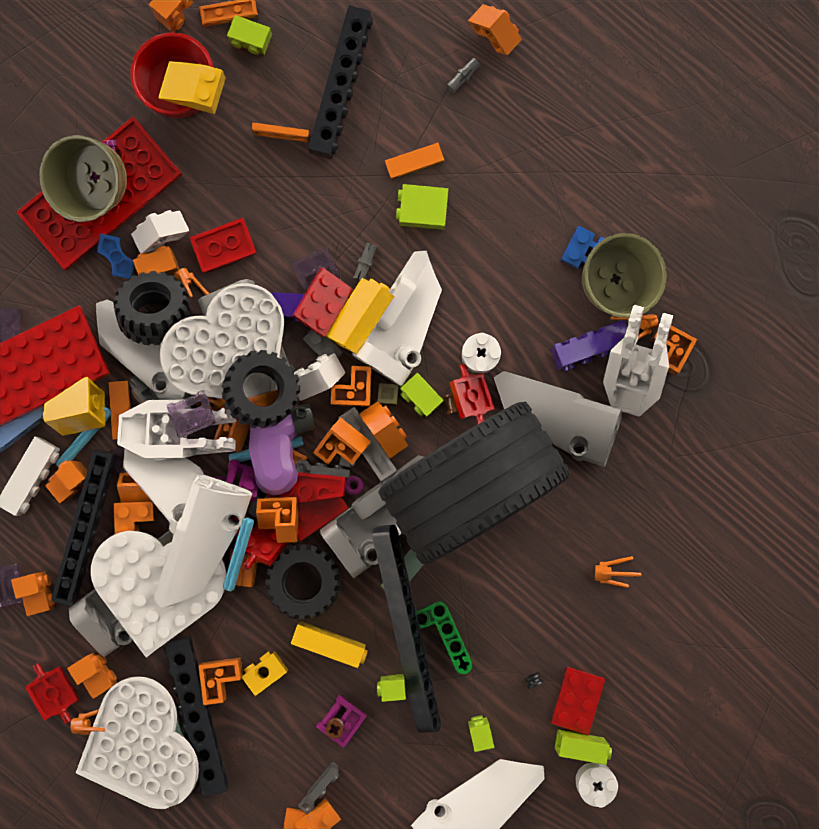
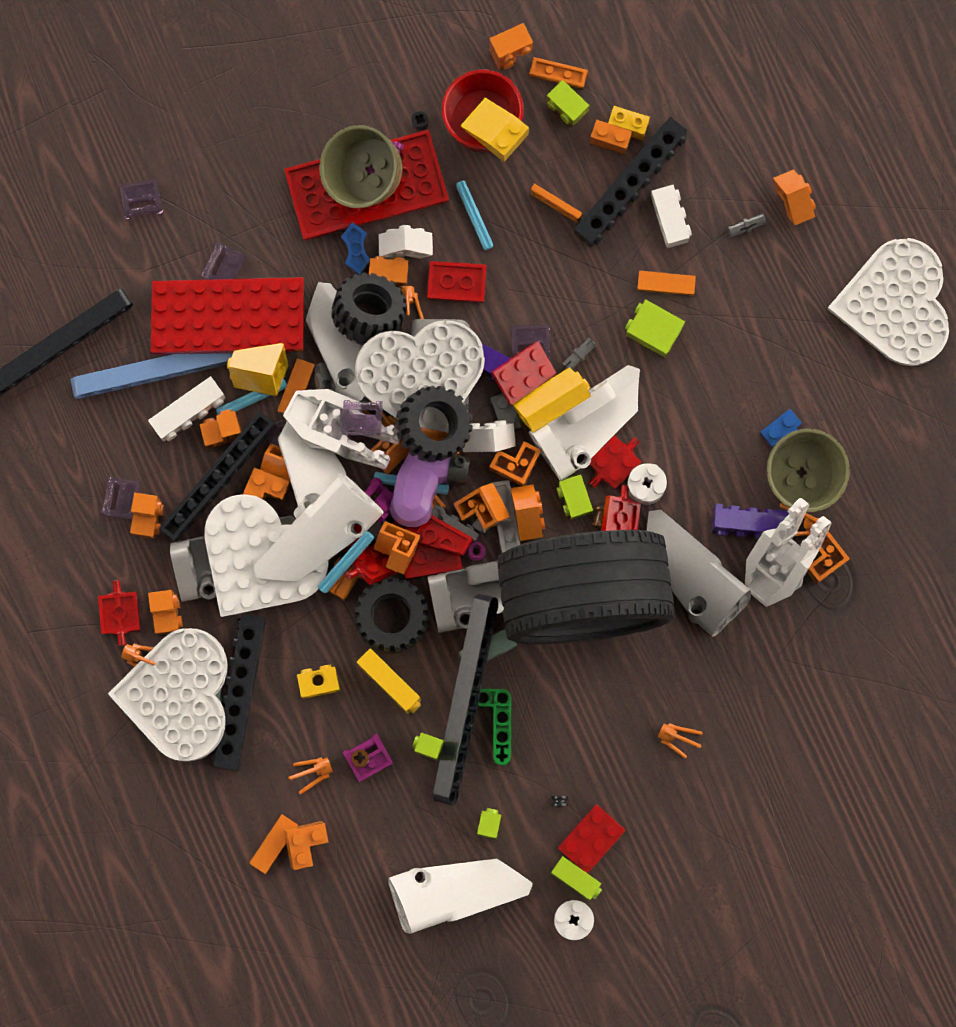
camera: 25 degrees right, 5 degrees down
(126, 116) = (420, 126): none -> black bush
(213, 178) = (474, 215): none -> medium azure axle
(213, 678) = (273, 662): orange brick -> none
(303, 48) = (610, 137): none -> orange brick
(303, 750) = (321, 768): none -> orange plant
(313, 28) = (631, 121): none -> yellow brick
(319, 787) = (319, 809): dark grey hinge -> none
(388, 393) = (545, 482): olive plate -> none
(390, 97) = (671, 216): none -> white brick
(442, 346) = (614, 462): none -> red plate
(629, 86) = (895, 302): none -> white plate

